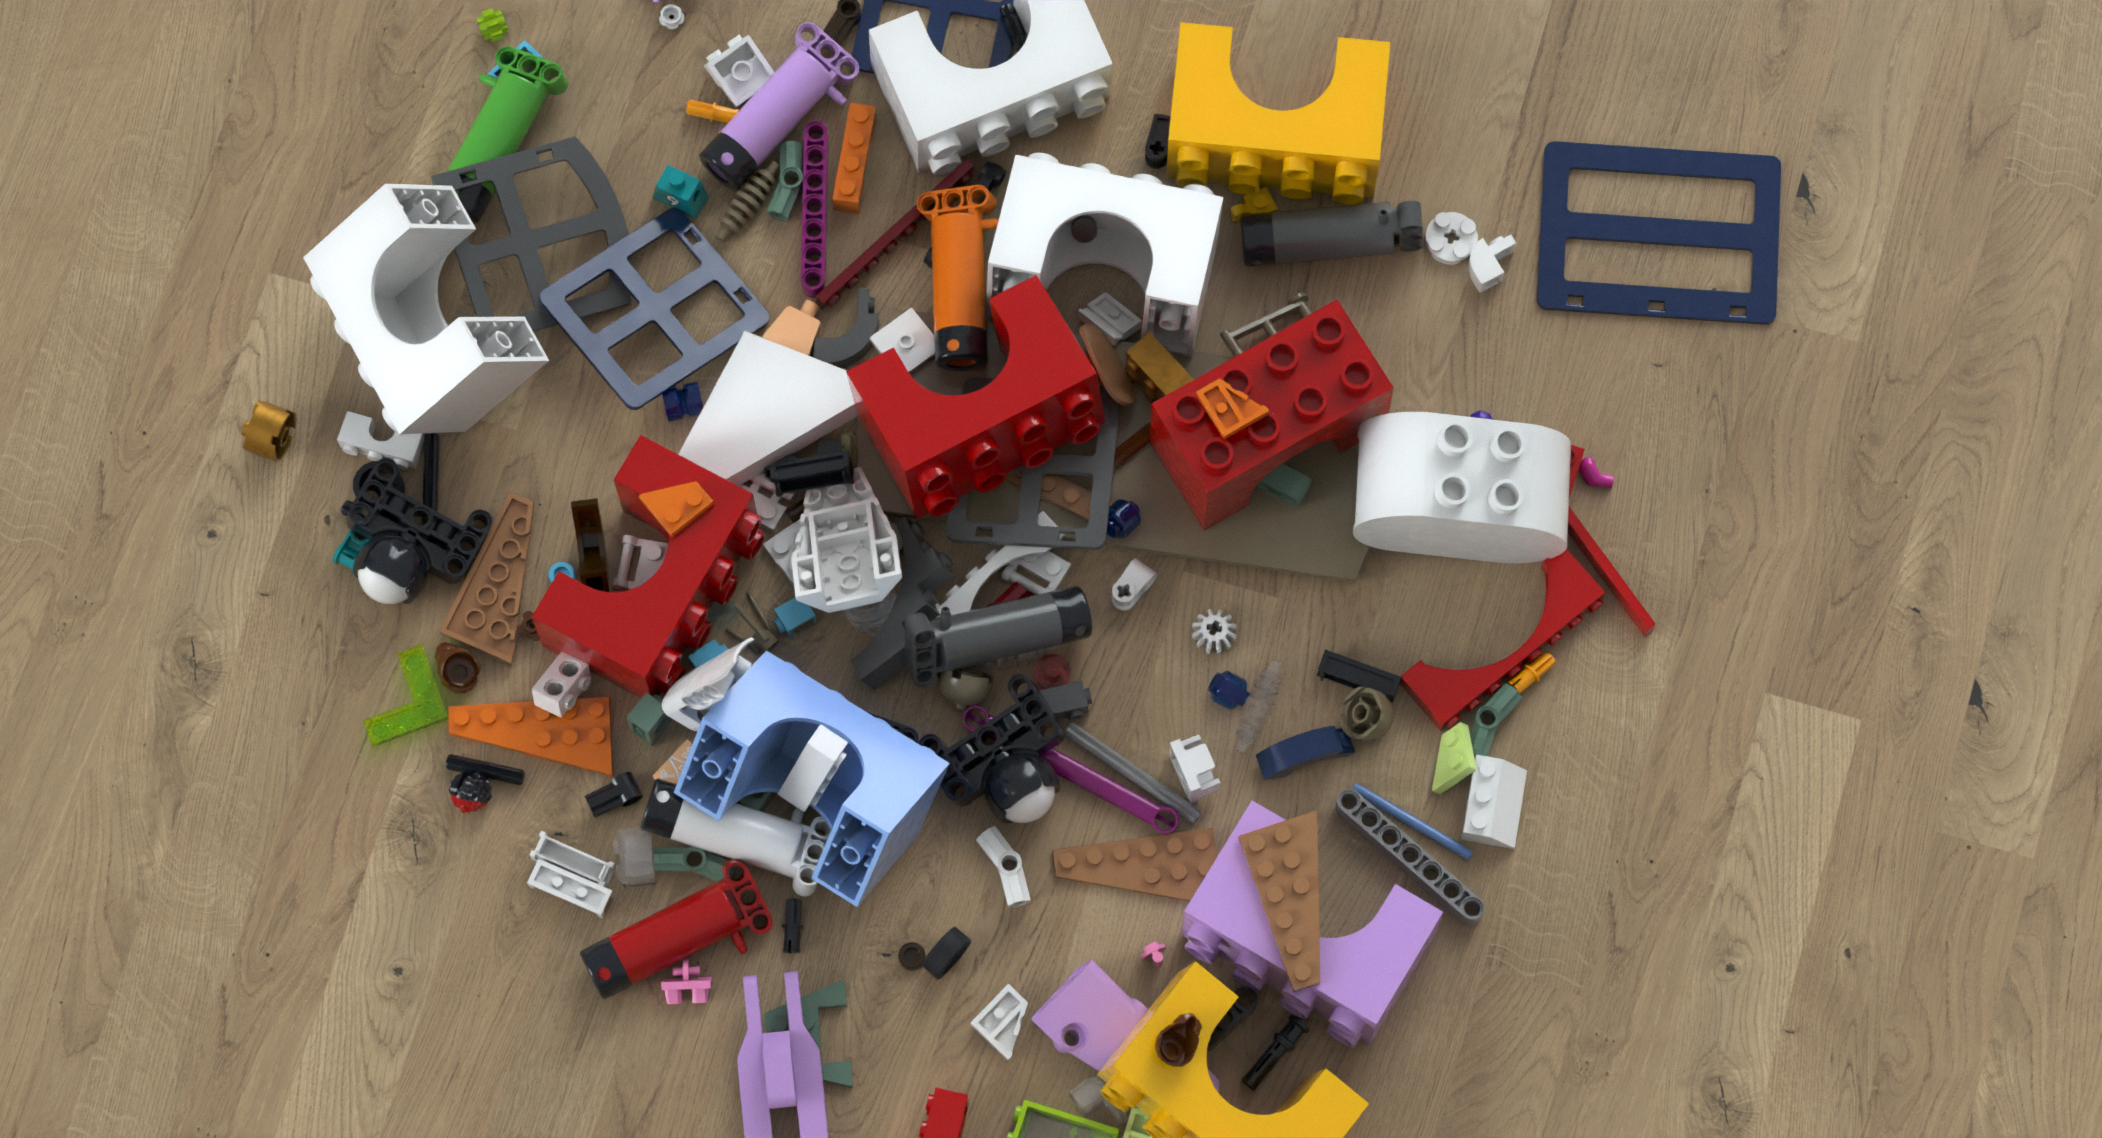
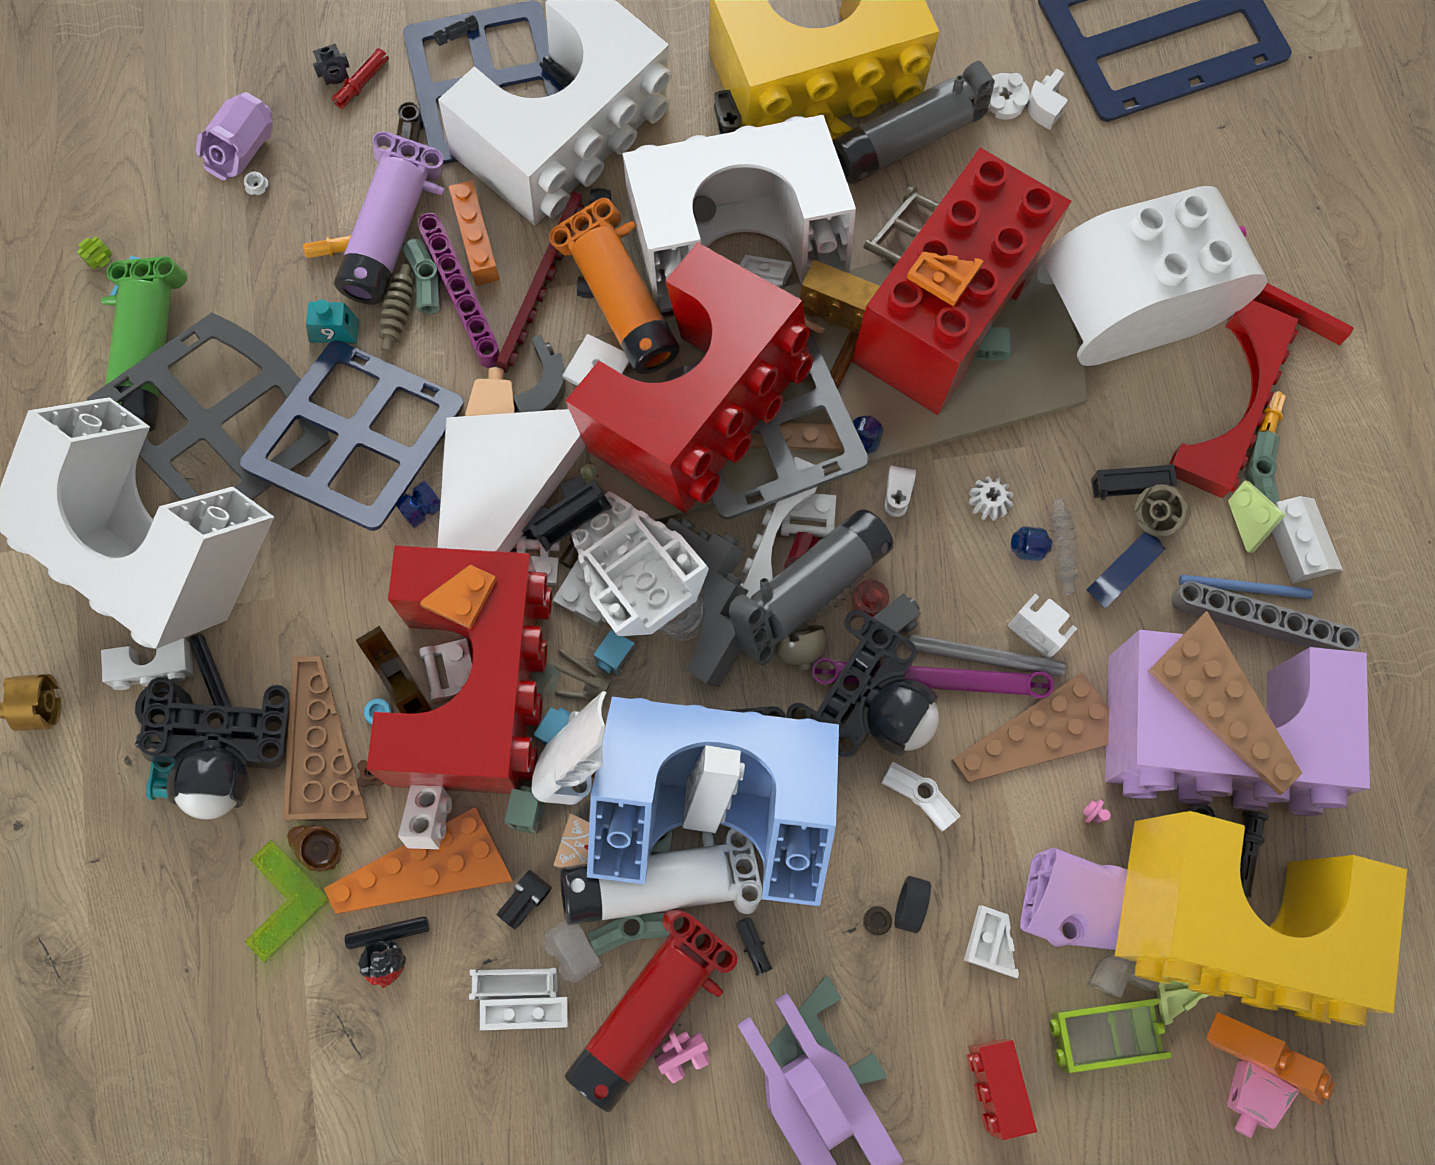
camera: 30 degrees left, 0 degrees up
(739, 69) = (335, 201): white plate -> none
(1179, 1041) = (1223, 900): reddish brown hair -> none

